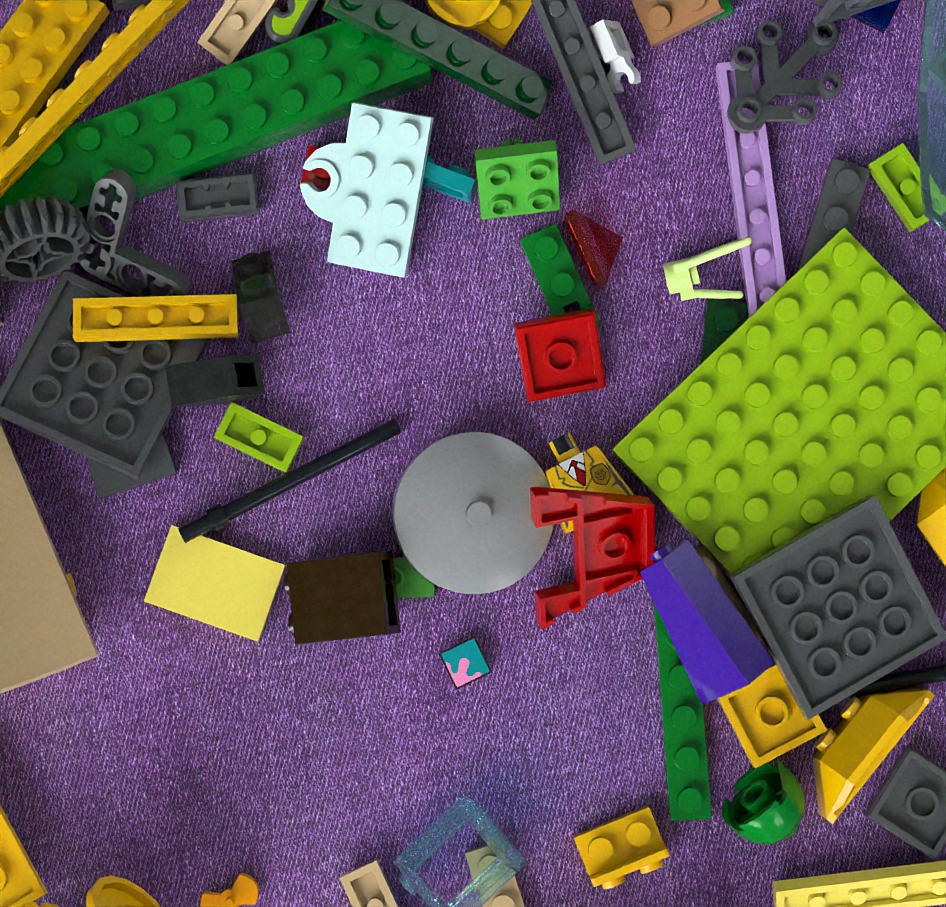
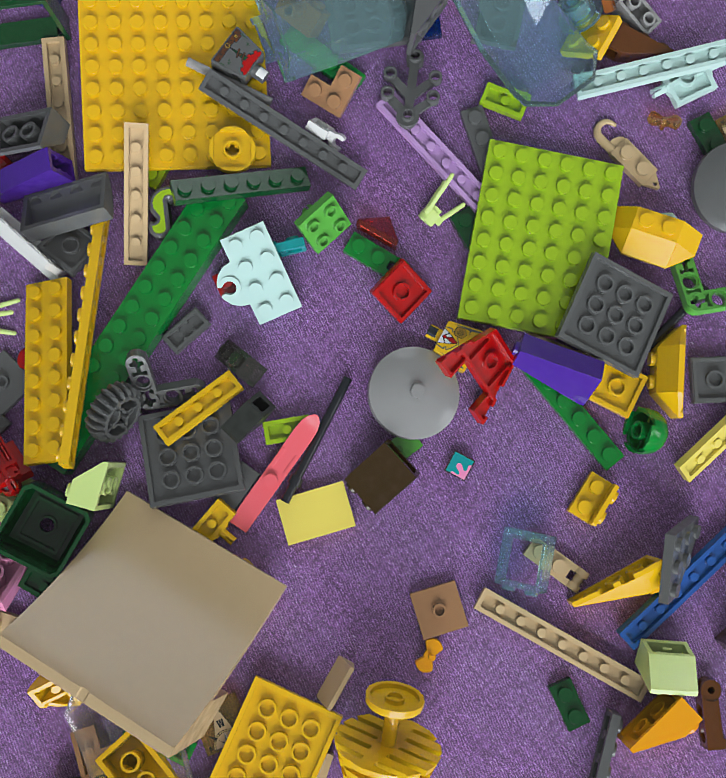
camera: 40 degrees left, 0 degrees up
(67, 495) = (216, 521): none -> yellow plate
(71, 839) = (335, 682): none -> tan slope
(199, 486) = (276, 472): none -> coral piece
(289, 844) = (439, 609): none -> medium nougat plate

